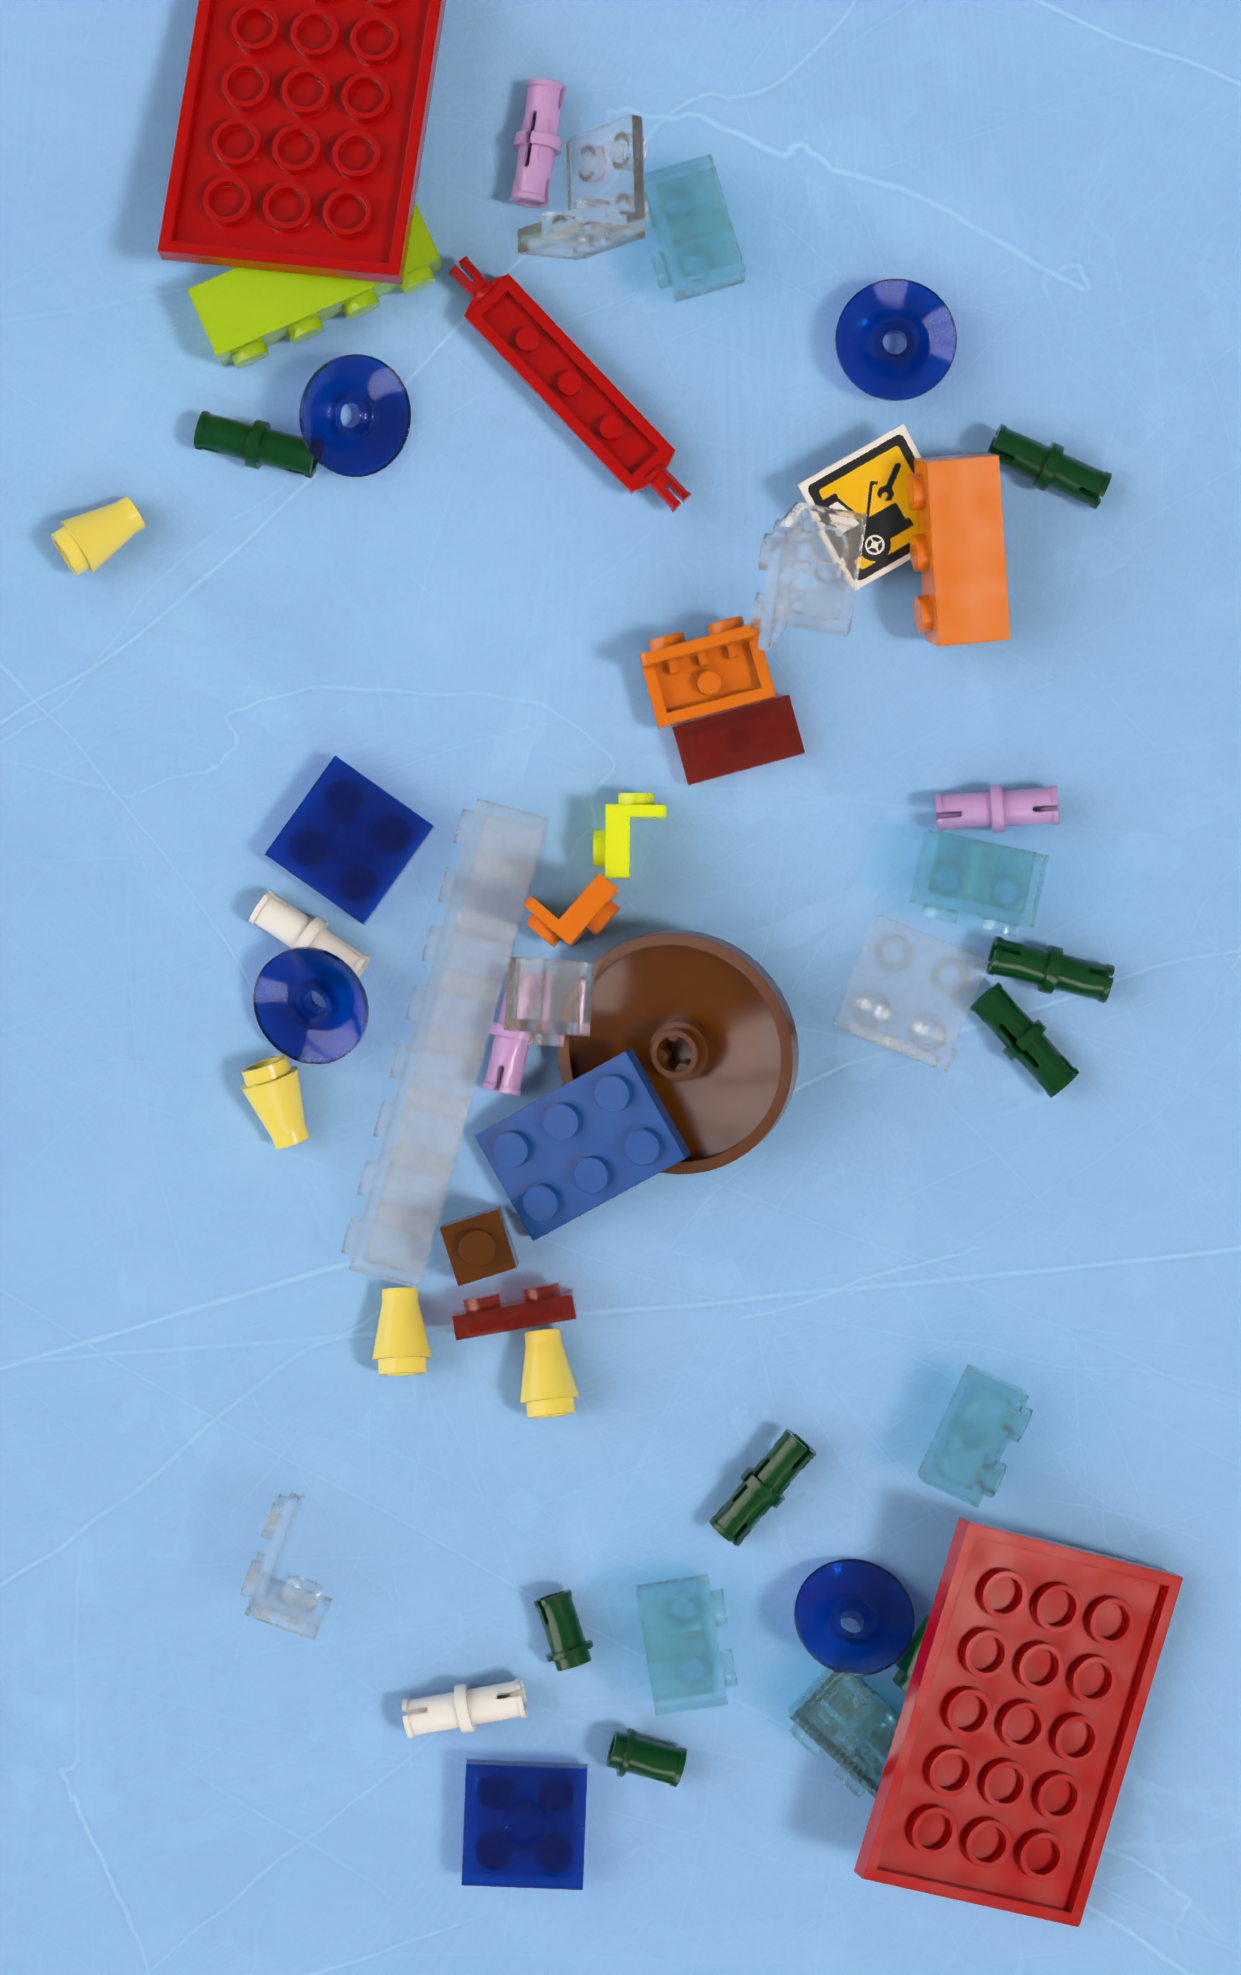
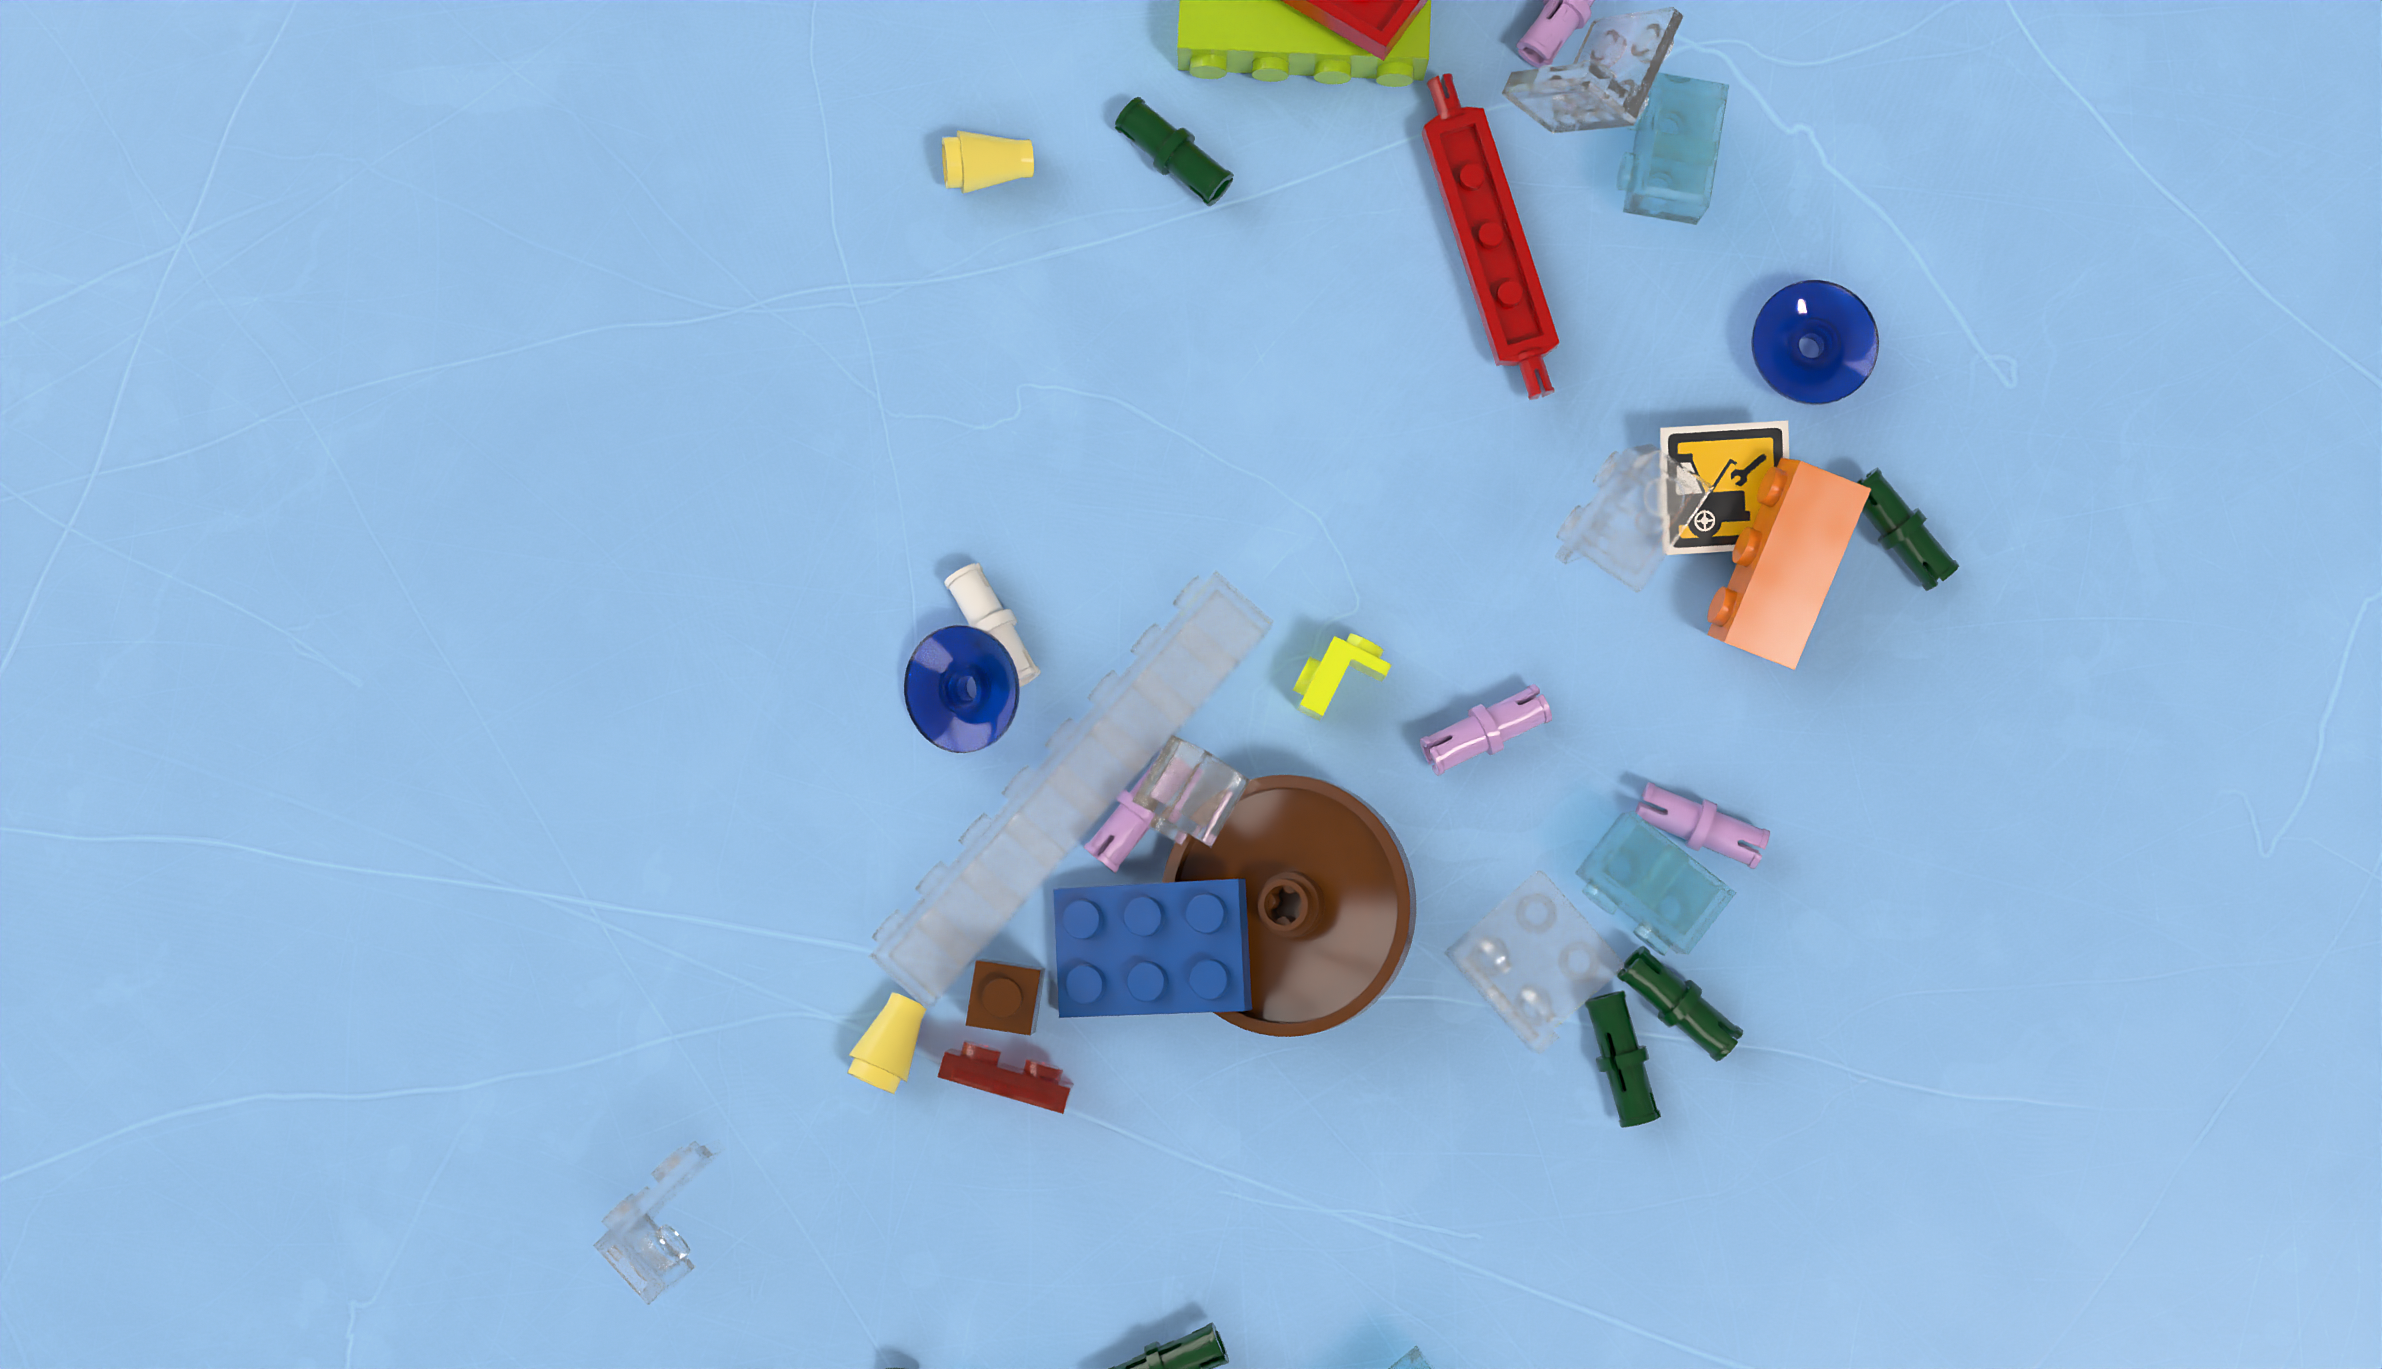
camera: 30 degrees right, 5 degrees down
(277, 1099) = (885, 760): light yellow cone -> none
(349, 840) = (1076, 553): clear blue plate -> none
(377, 422) = (1301, 171): clear blue dish -> none
(547, 1378) = (1007, 1155): light yellow cone -> none
(589, 911) = (1269, 728): orange bracket -> none
(706, 673) = (1488, 561): orange bracket -> none
(738, 740) = (1486, 641): clear red plate -> none
(774, 817) = (1485, 729): none -> lavender pin

